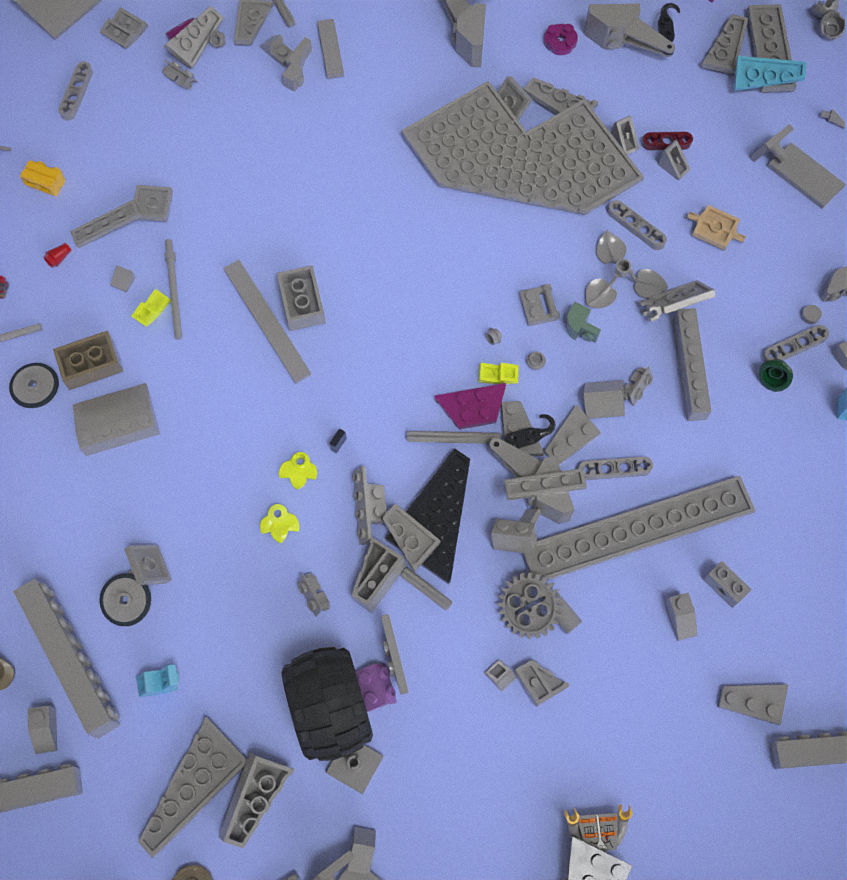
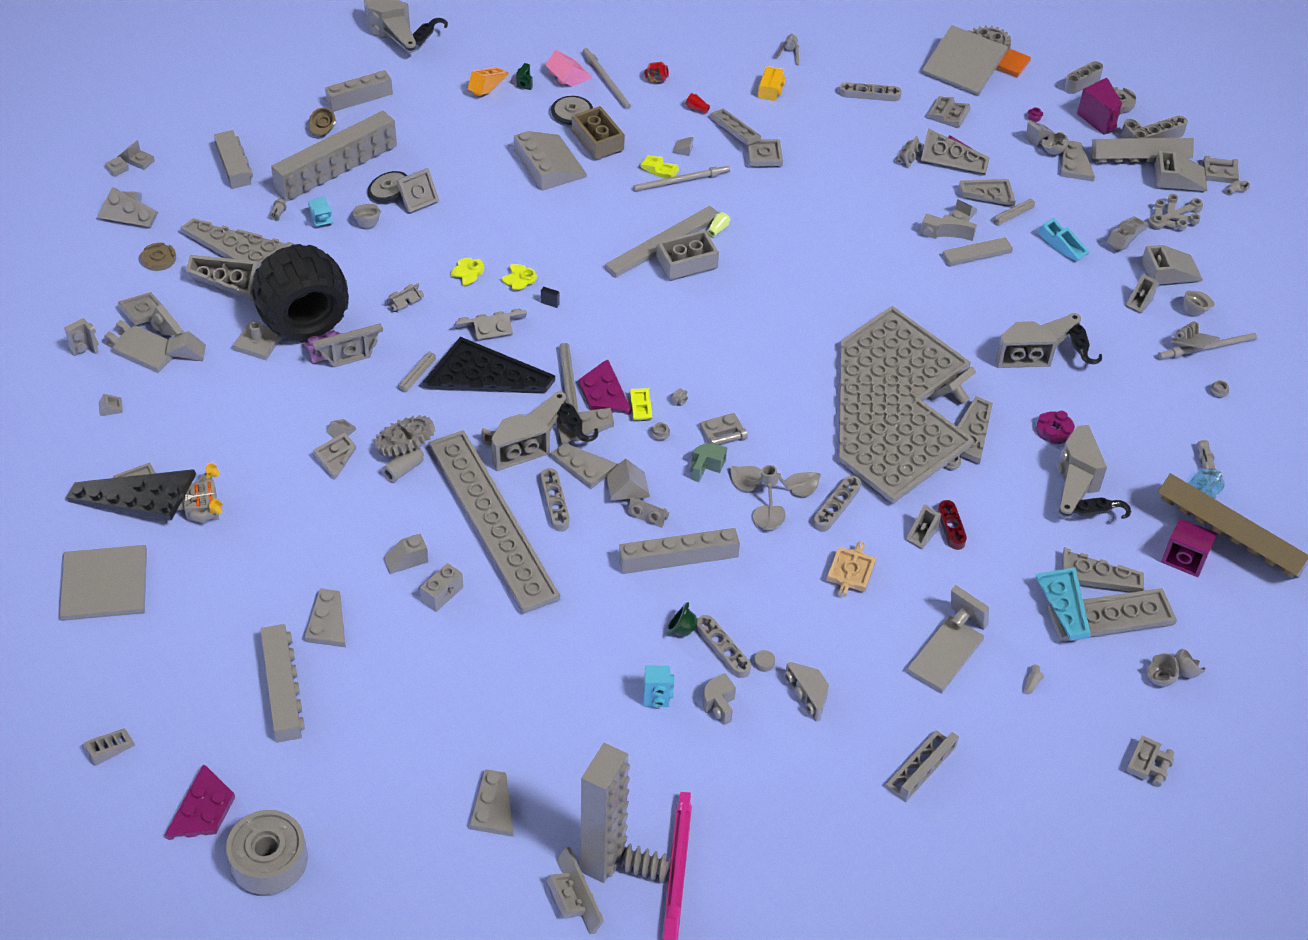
camera: 80 degrees right, 20 degrees down
(43, 729) = (278, 152): light grey slope -> none
(138, 734) = (279, 207): none -> light grey pin
(170, 627) = (367, 215): none -> light grey hat
(214, 41) = (957, 171): light grey plate -> none
(253, 263) = (718, 224): none -> yellowish green cone
(377, 575) = (423, 332): light grey wedge -> none
(410, 536) = (461, 349): light grey wing -> none
(514, 536) = (471, 418): light grey brick -> none
(545, 484) = (517, 421): light grey tile -> none
(625, 134) = (944, 483): light grey slope -> none
(676, 299) = (751, 531): light grey tile -> none

